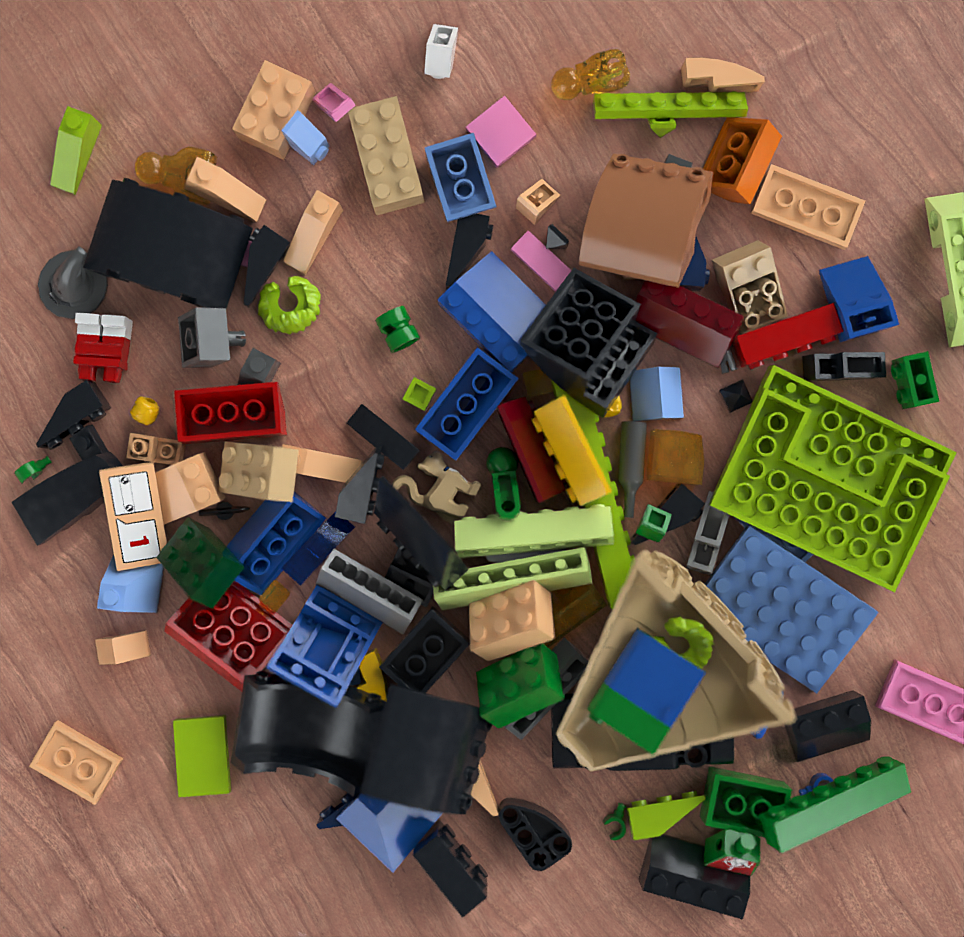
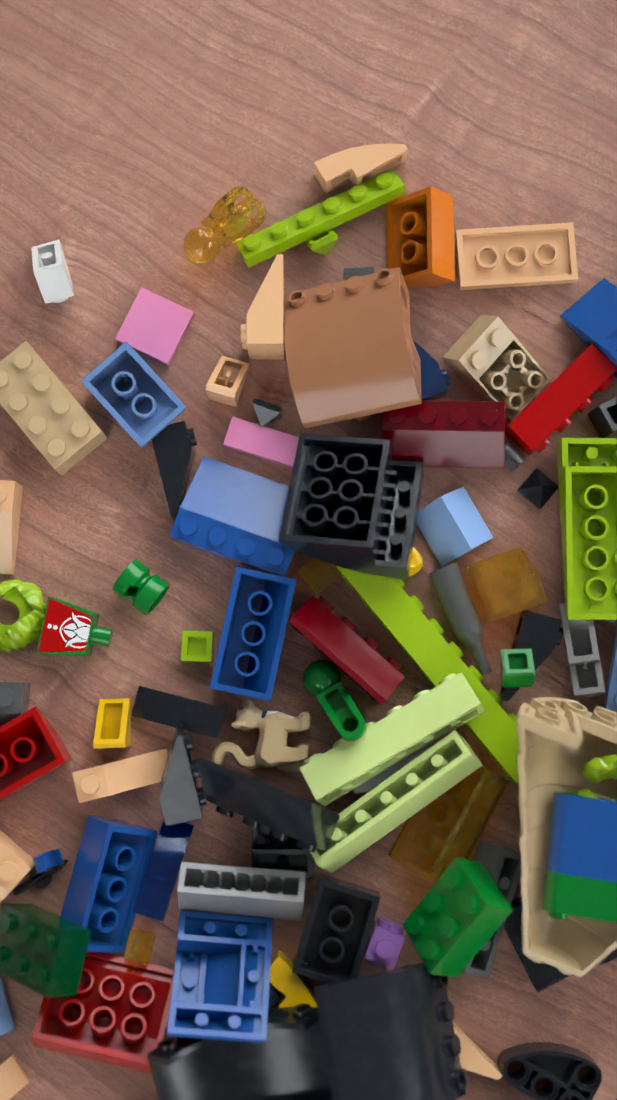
camera: 25 degrees left, 5 degrees down
(235, 501) = (47, 860): none -> blue piece
(258, 471) = (59, 816): tan brick -> none
(329, 337) = (70, 630): none -> torso
(329, 422) = (113, 724): none -> yellow slope
(456, 679) = (384, 943): none -> medium lavender brick
(511, 621) = (413, 850): light nougat brick -> none
(571, 452) = (391, 632): yellow slope -> none
(584, 173) = (264, 320): none -> light nougat slope

